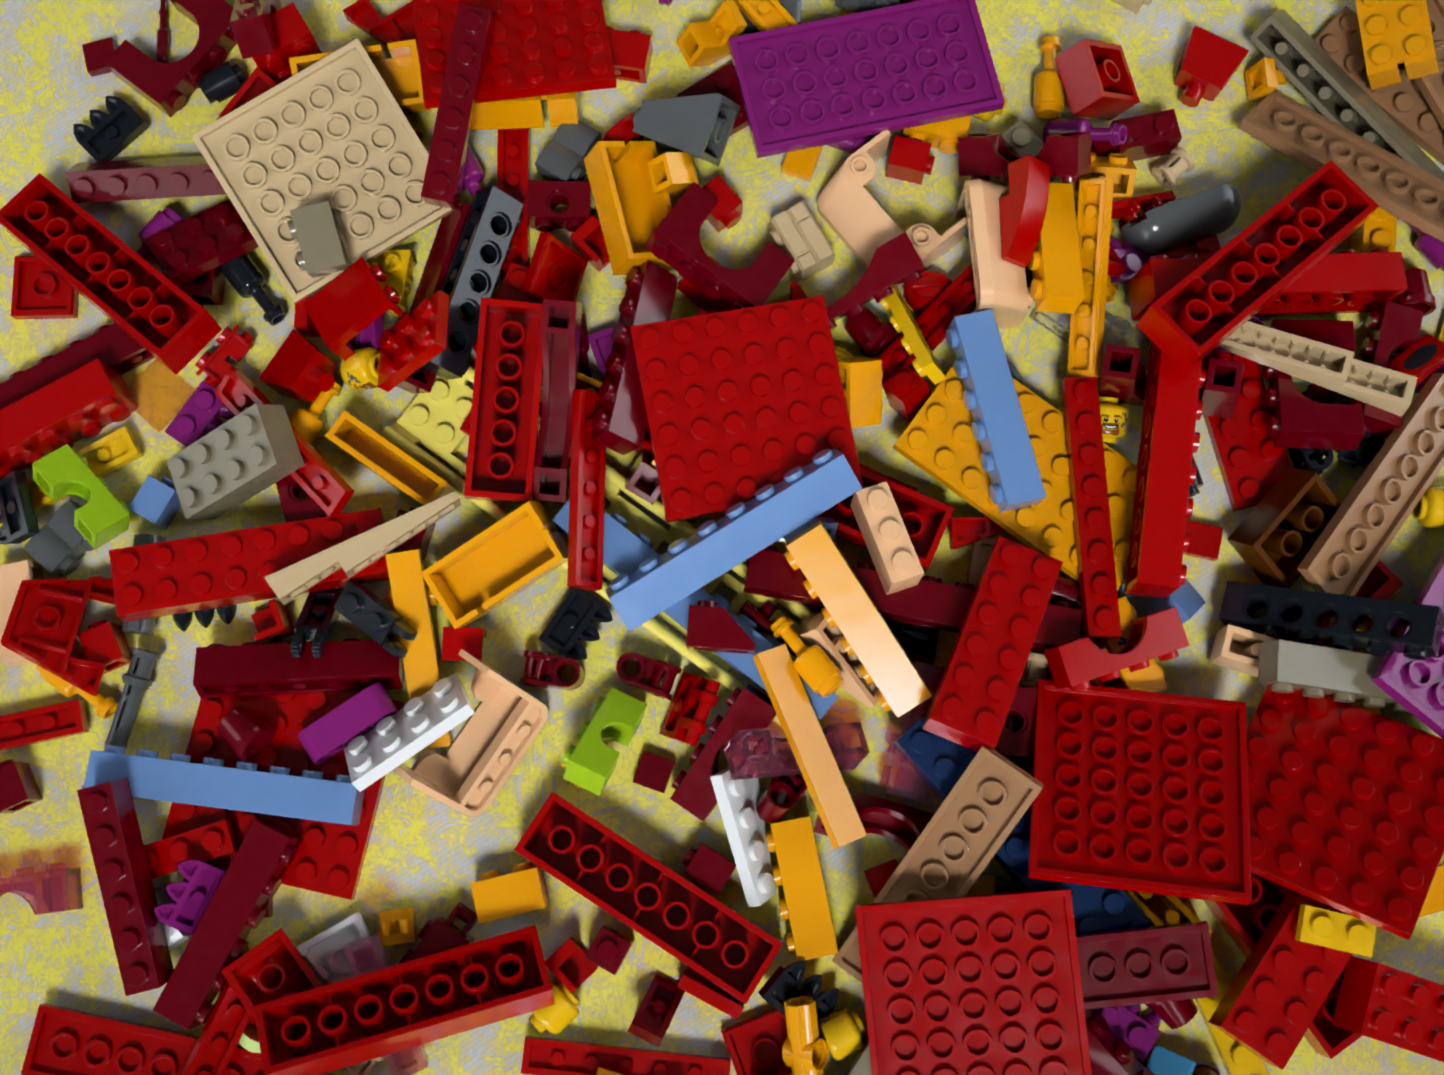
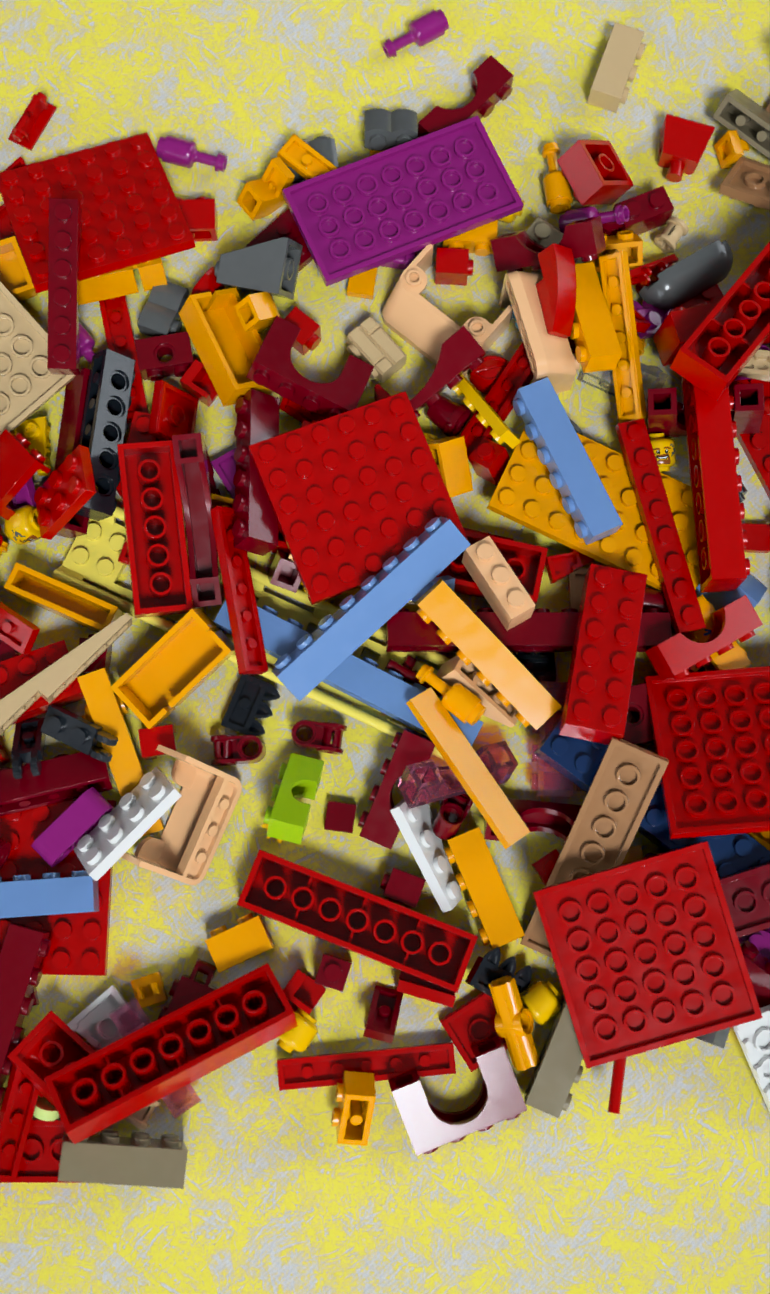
camera: 20 degrees left, 0 degrees up
(690, 709) = (361, 758): red plate -> none
(715, 630) = (371, 687): dark red slope -> none
(1036, 668) = (642, 668): tan bush -> none

